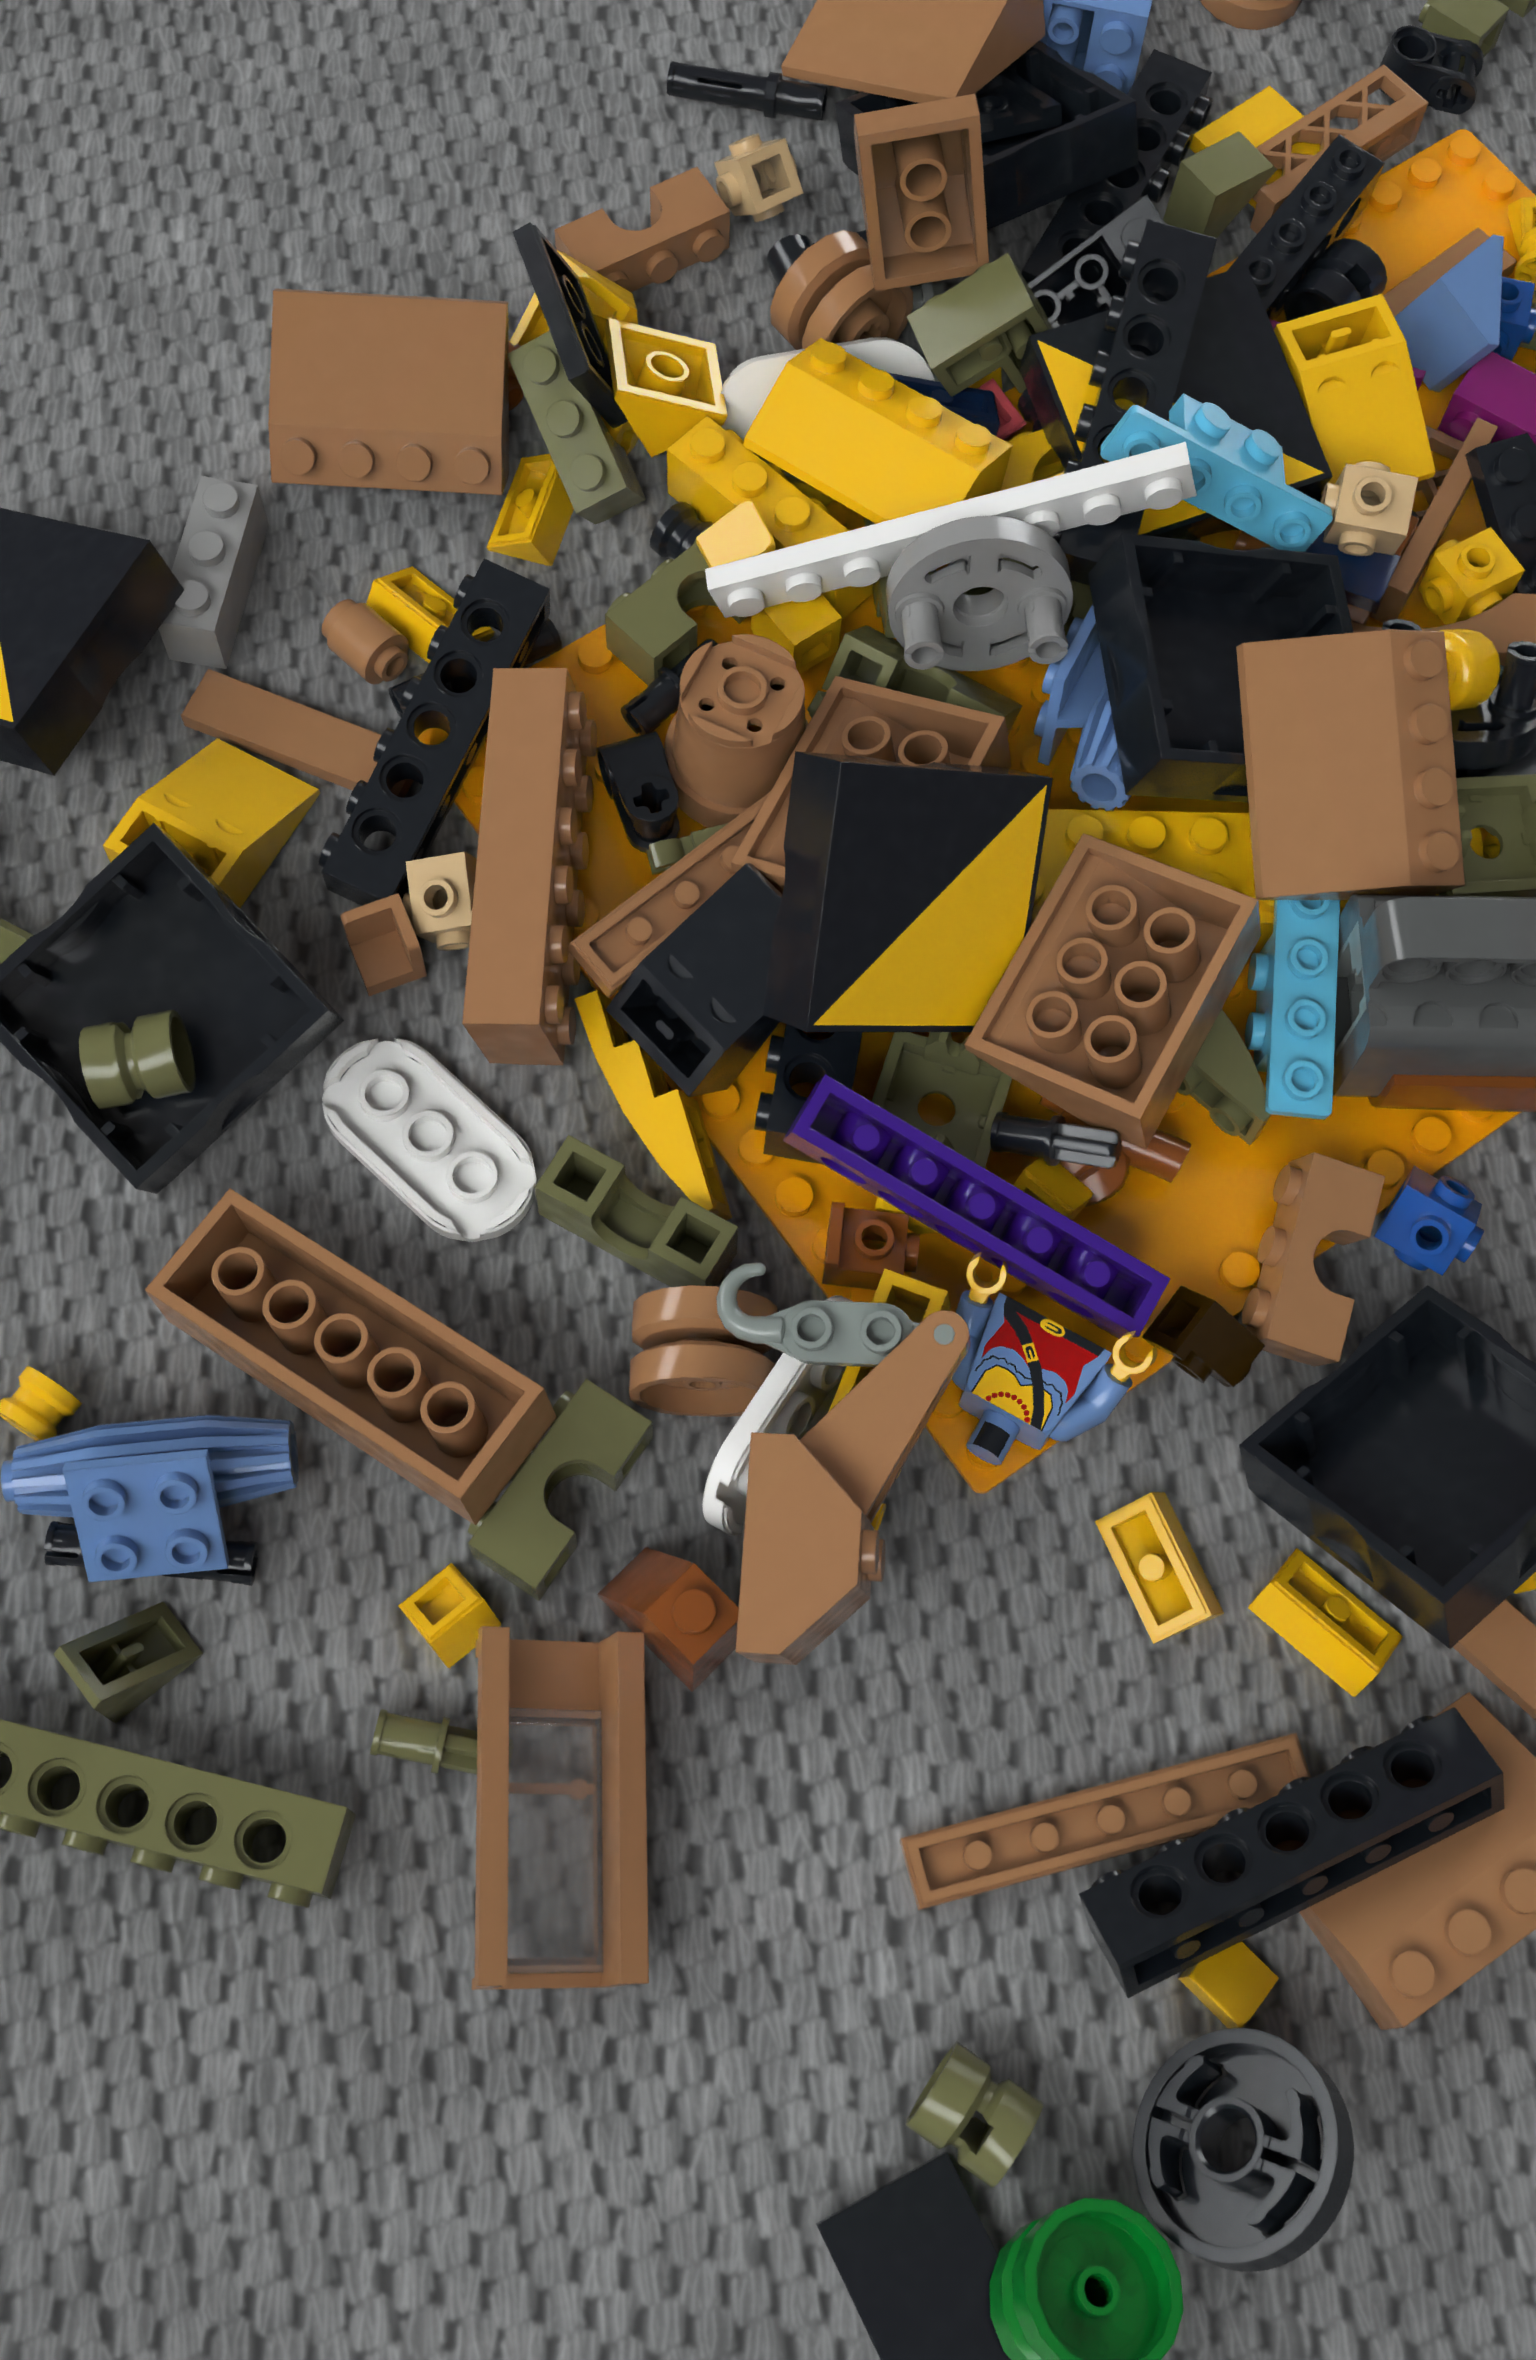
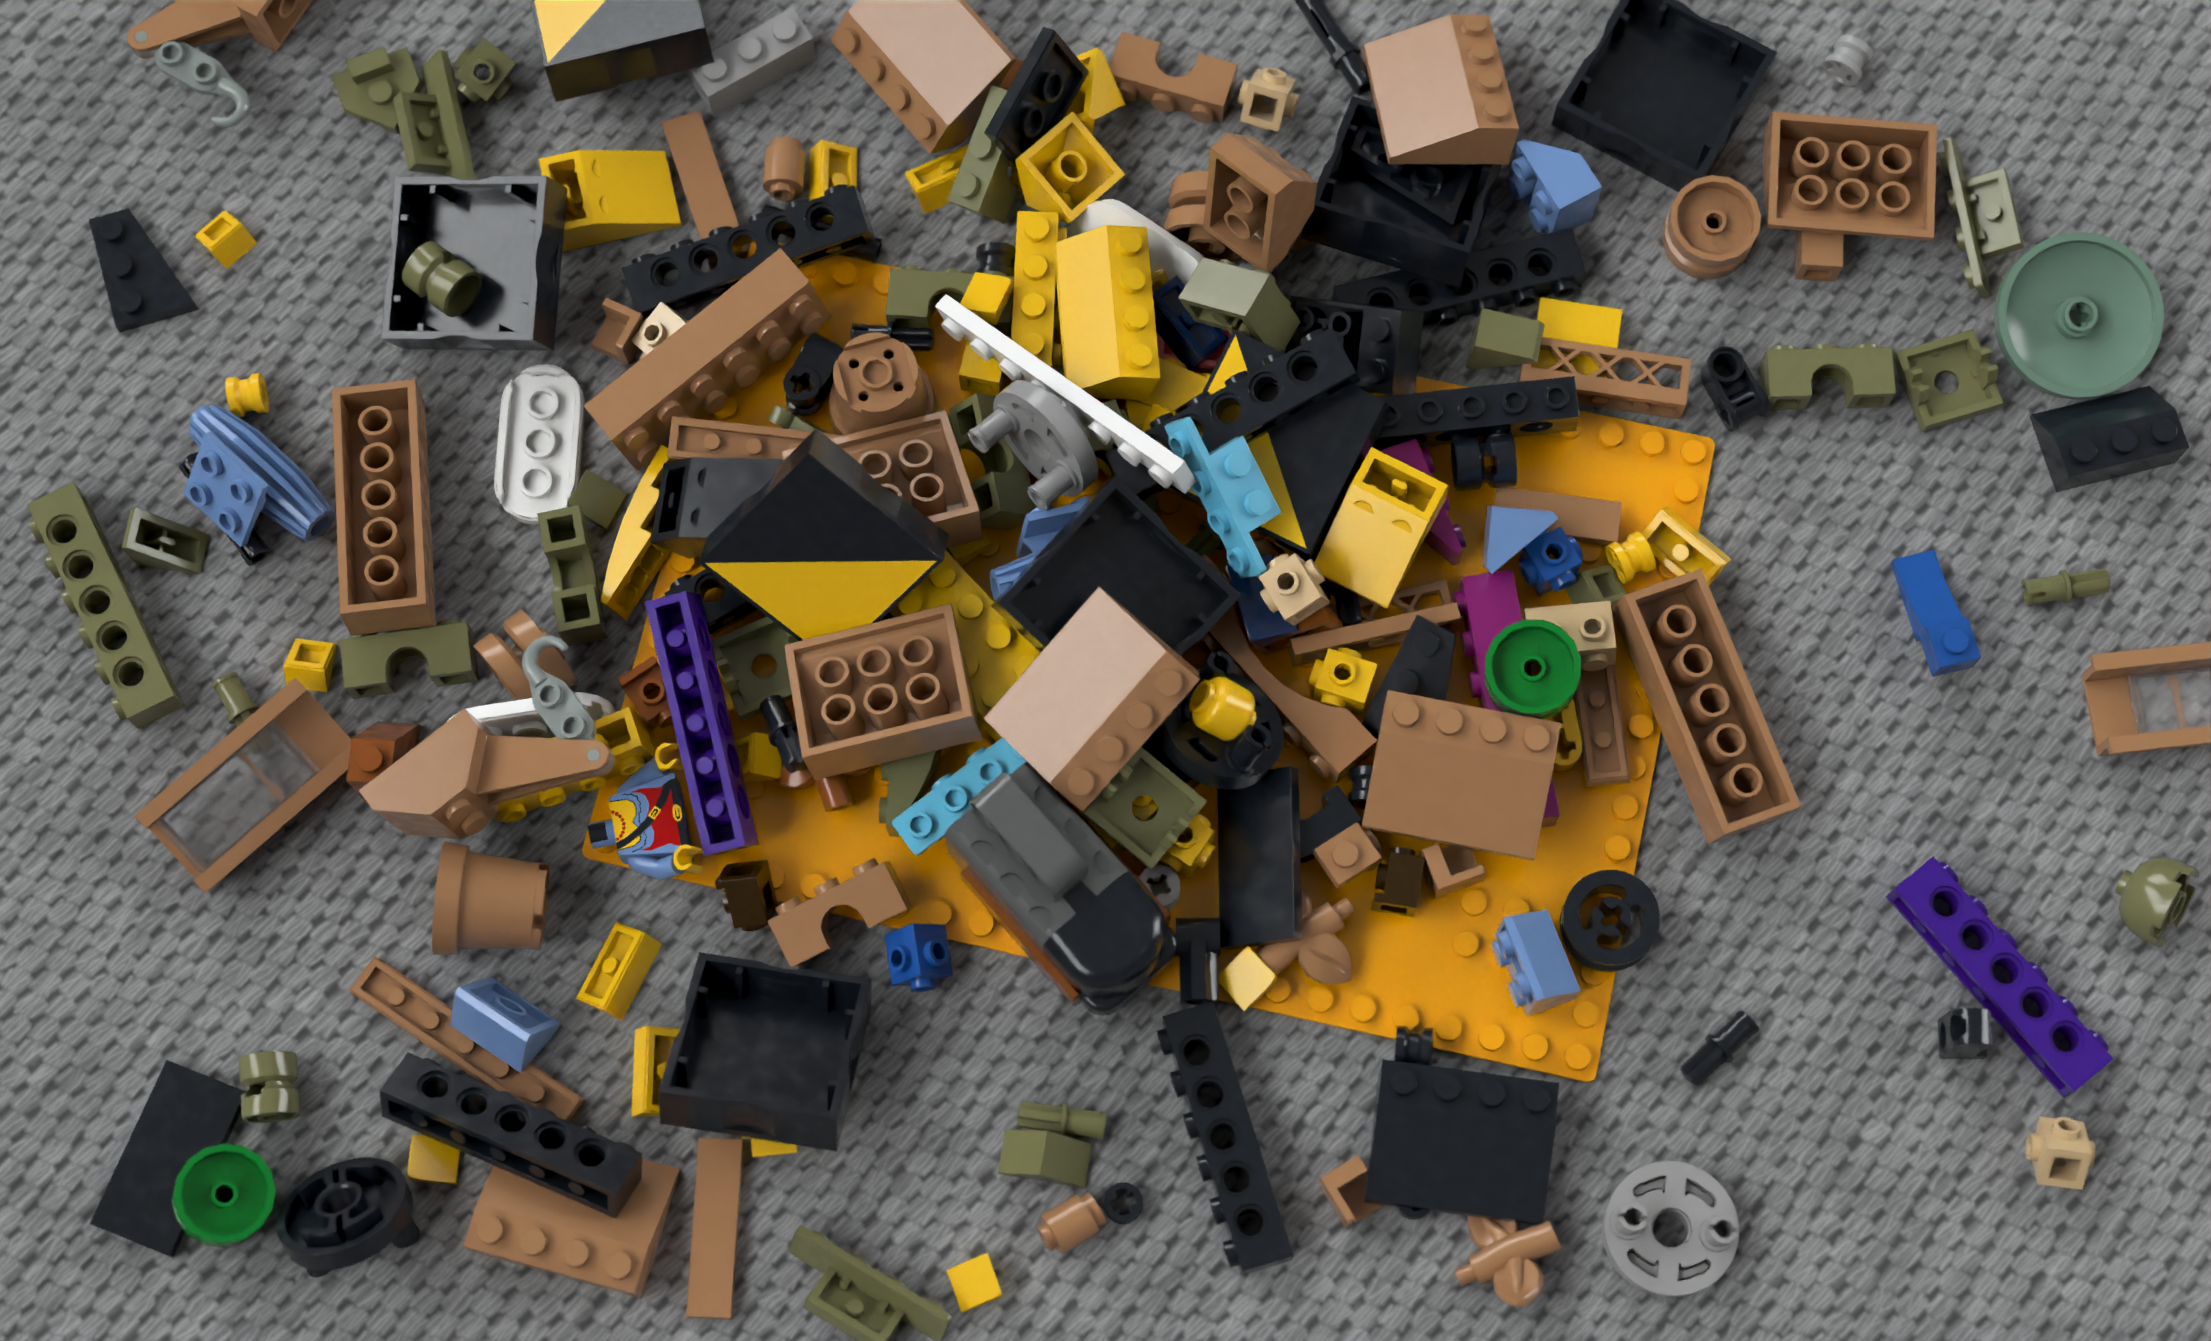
camera: 55 degrees right, 5 degrees up
(551, 1122) = (597, 499): none -> olive slope
(969, 1638) = (487, 902): none -> medium nougat piece
(1130, 1748) = (501, 1021): none -> medium blue slope

